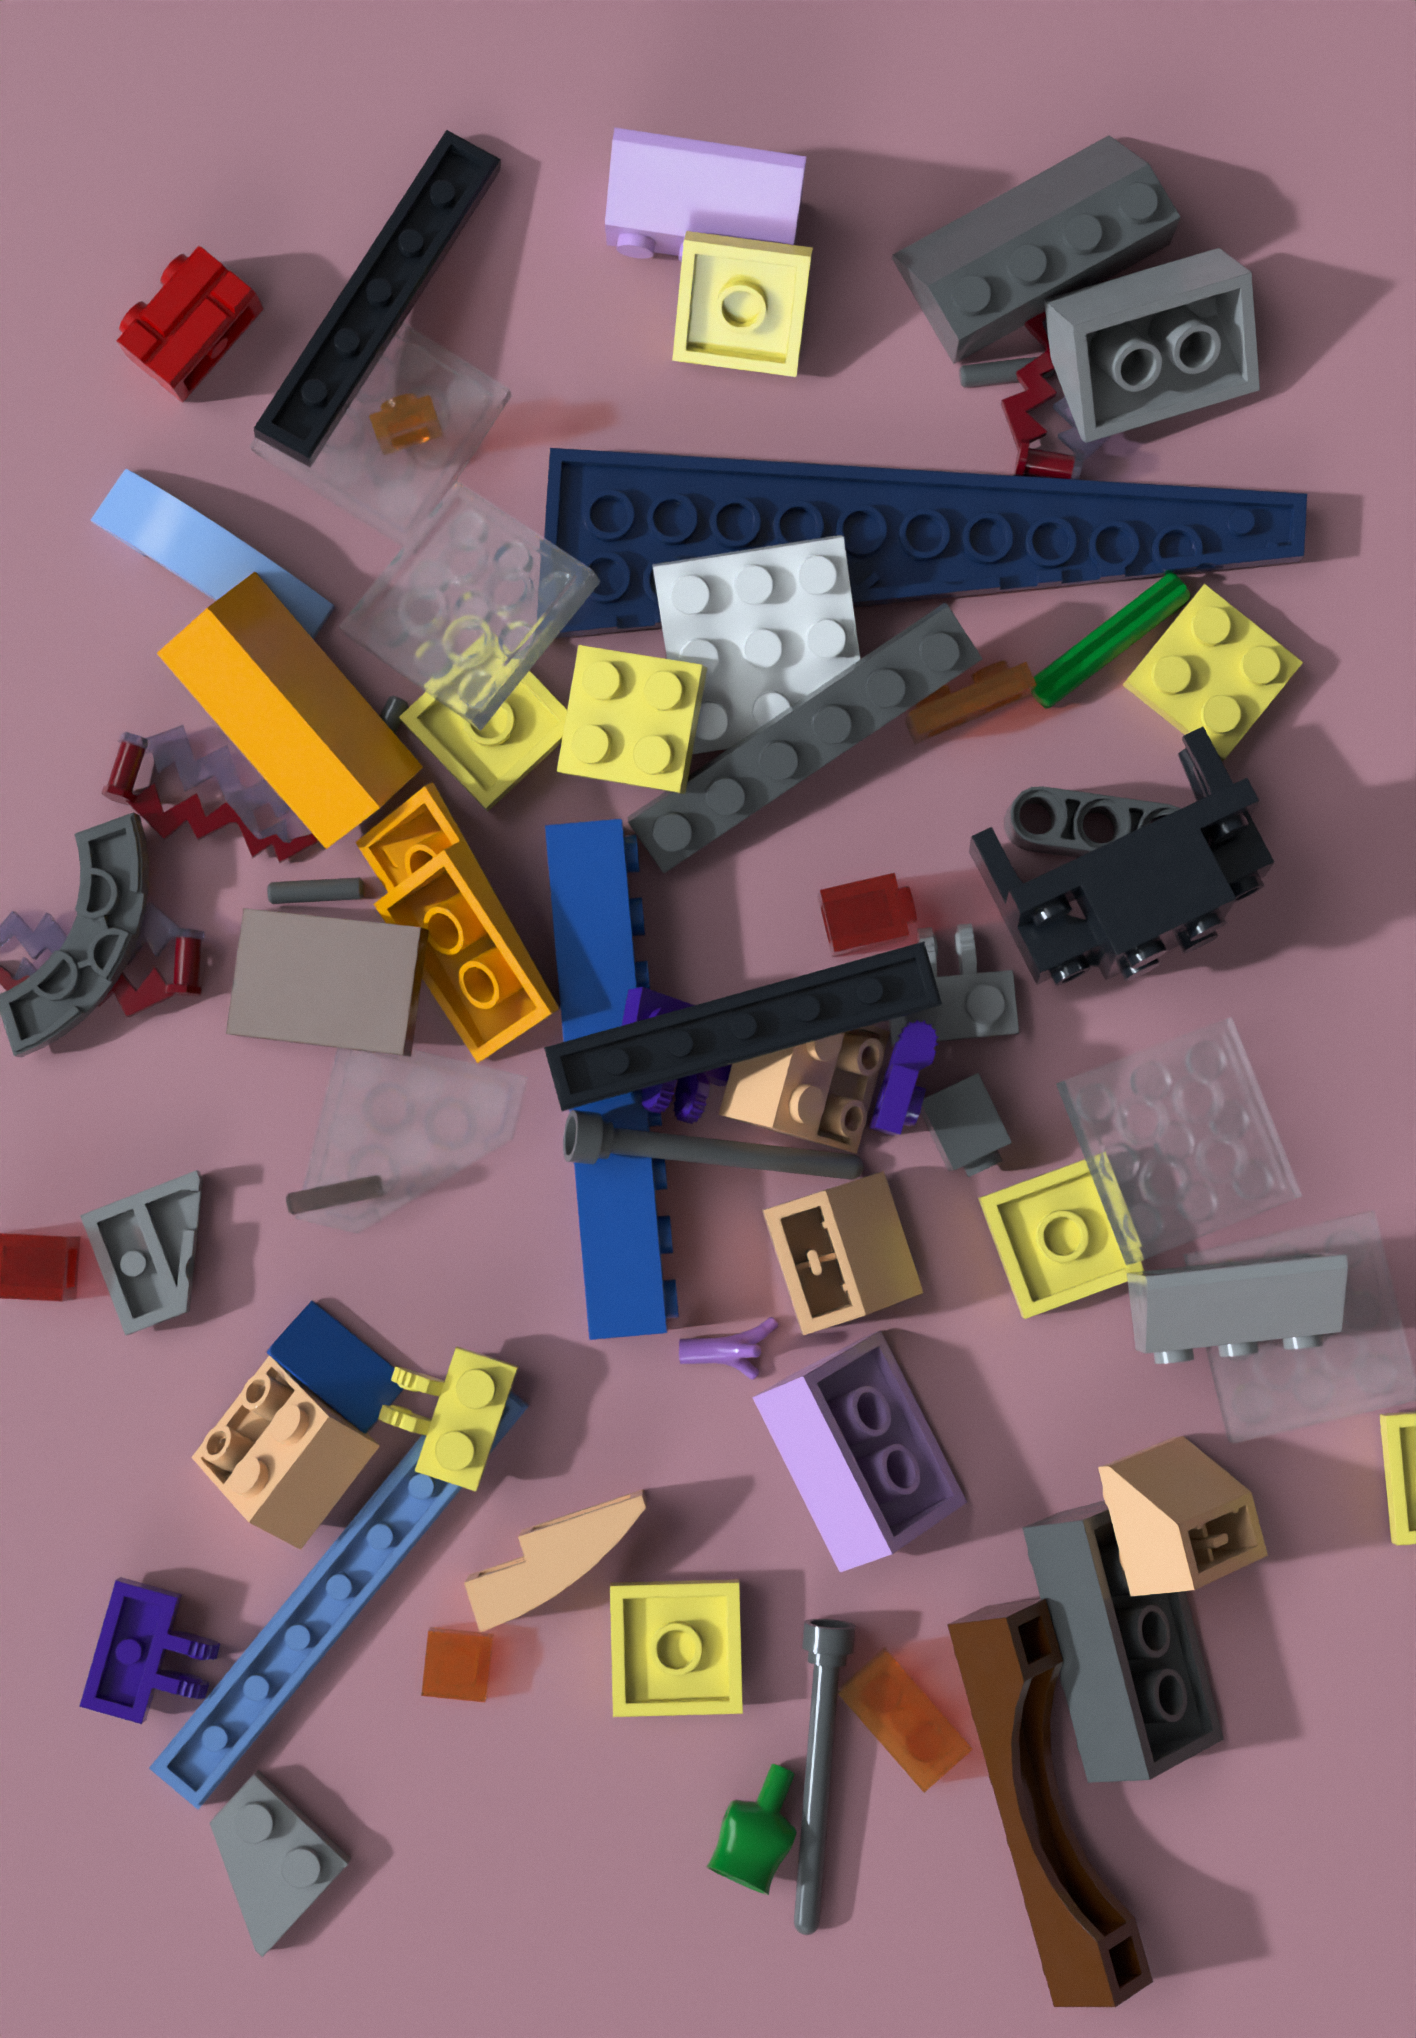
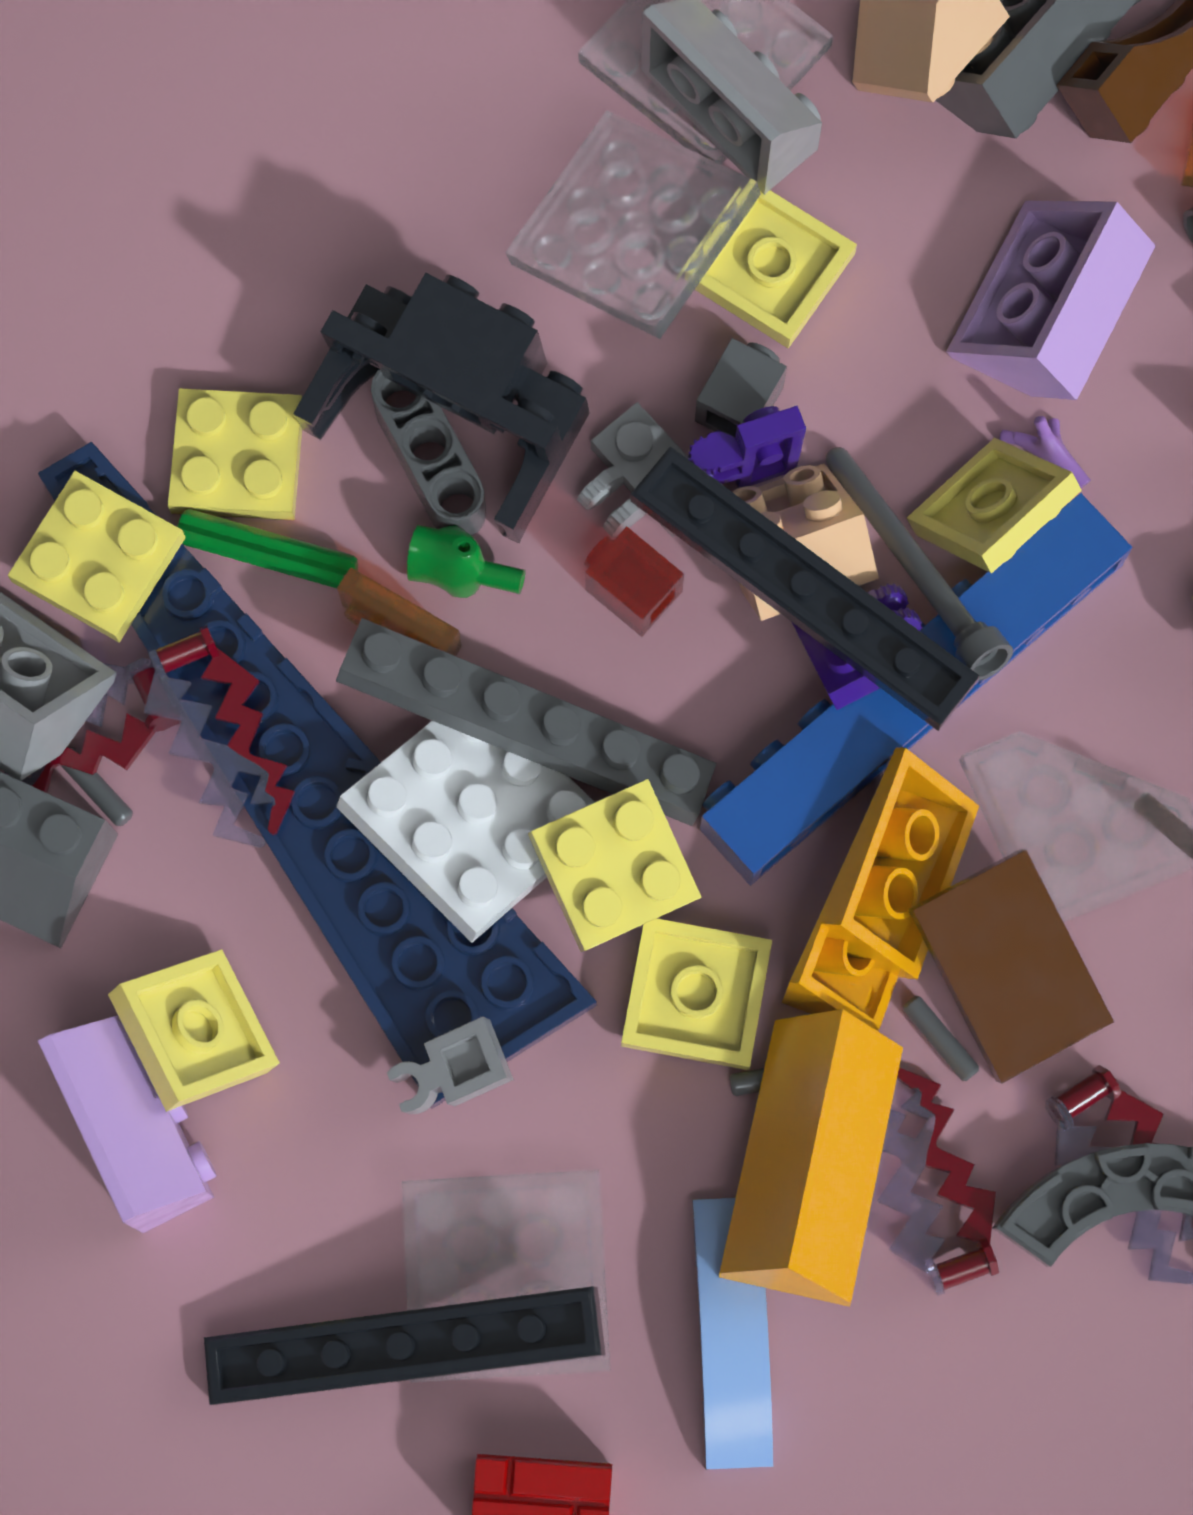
camera: 125 degrees left, 10 degrees down
(405, 422) = (499, 1235): clear orange plate -> none
(469, 604) = (614, 1071): clear plate -> none
(560, 483) = (460, 1066): none -> light grey plate
(710, 1255) = (994, 504): none -> light yellow plate
(842, 1252) = (915, 412): light nougat slope -> none
(944, 477) = (228, 760): none -> piece
(983, 780) = (456, 563): none -> green piece
(1196, 489) = (96, 556): none -> light yellow plate

